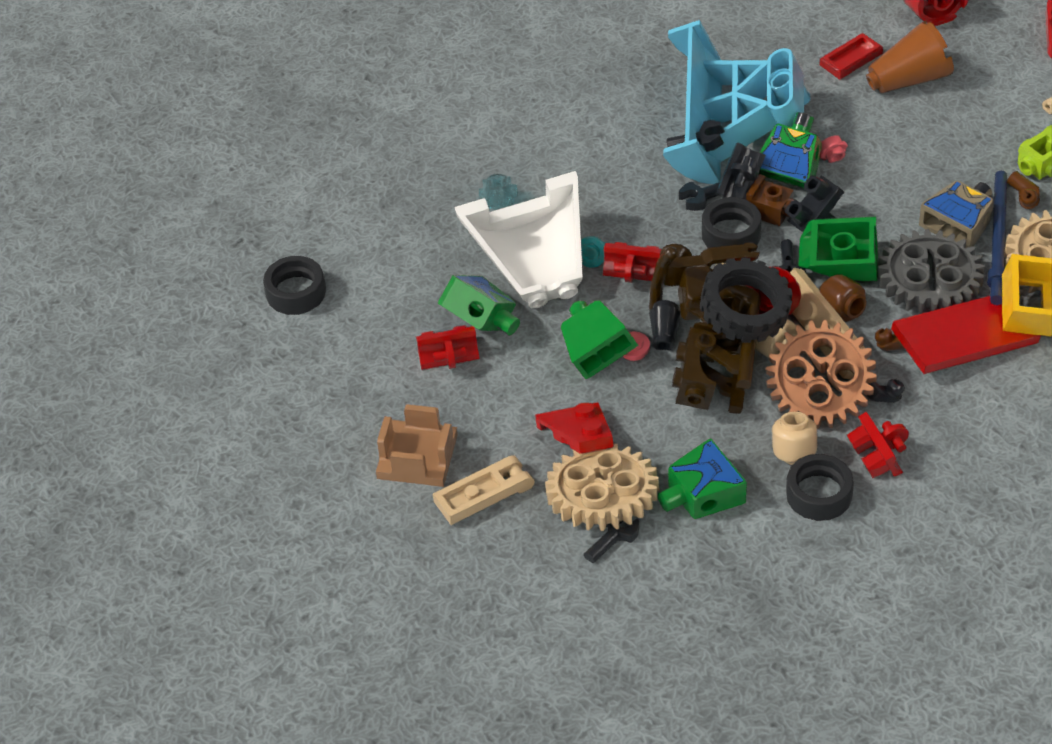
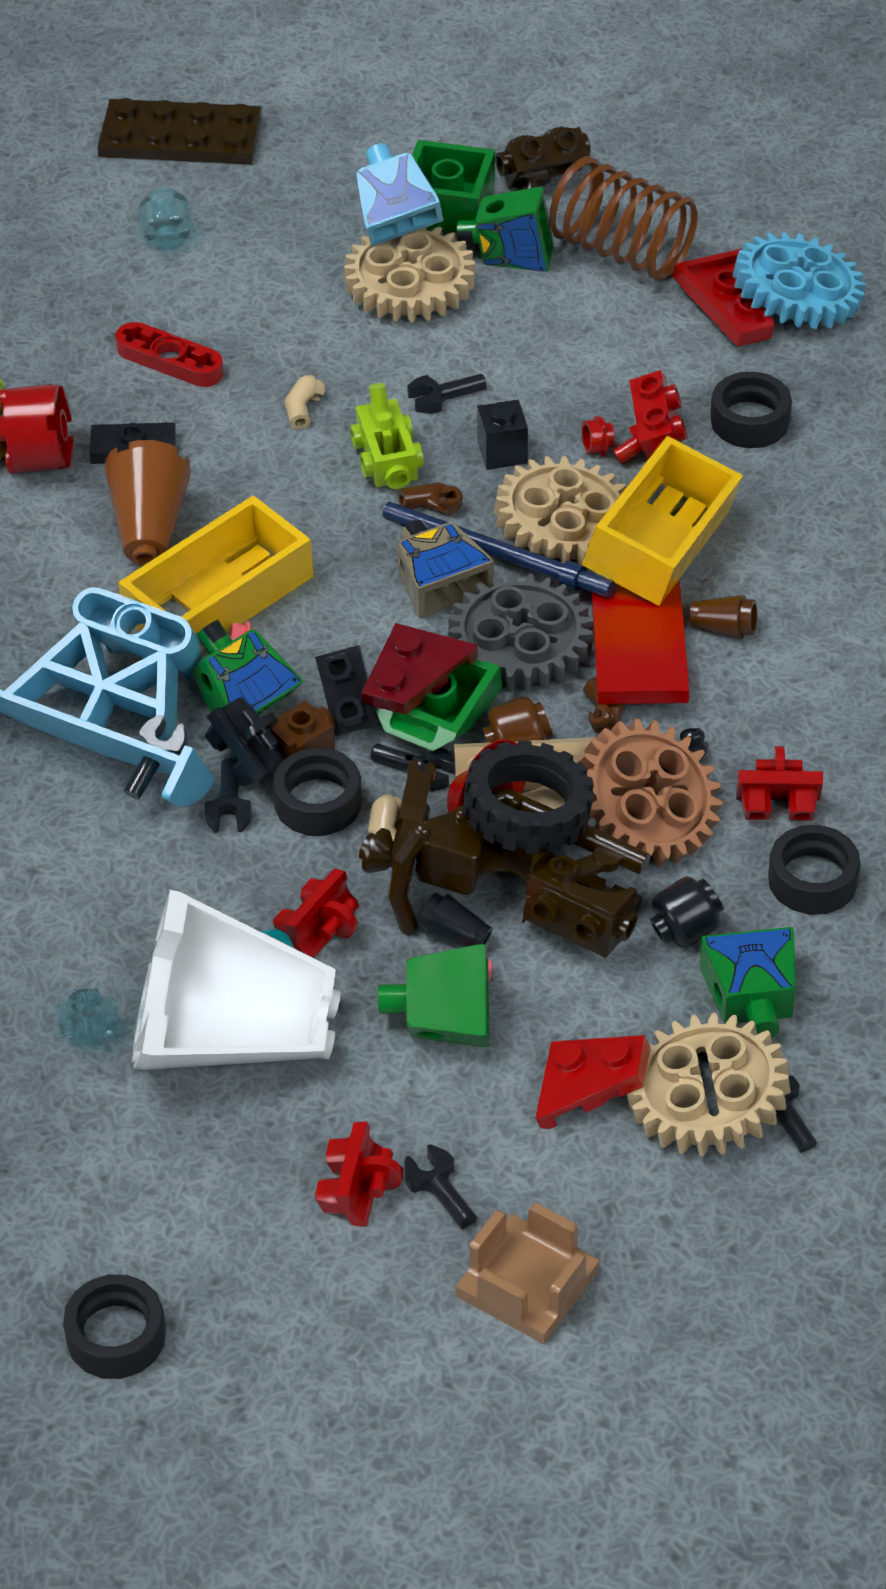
camera: 70 degrees left, 0 degrees up
(466, 389) = (438, 1183): none -> black bar
(480, 304) = (315, 1101): green torso -> none
(482, 489) = (641, 1222): tan plate -> none
(739, 431) = (686, 911): none -> black head
(794, 437) = (736, 858): tan head -> none
(842, 222) = (412, 667): none -> dark red wing
(851, 56) = (72, 560): red tile -> none
(882, 119) = (224, 569): none -> yellow piece
(970, 42) = (109, 436): none -> black plate
(1022, 371) = (726, 615): none -> reddish brown cone

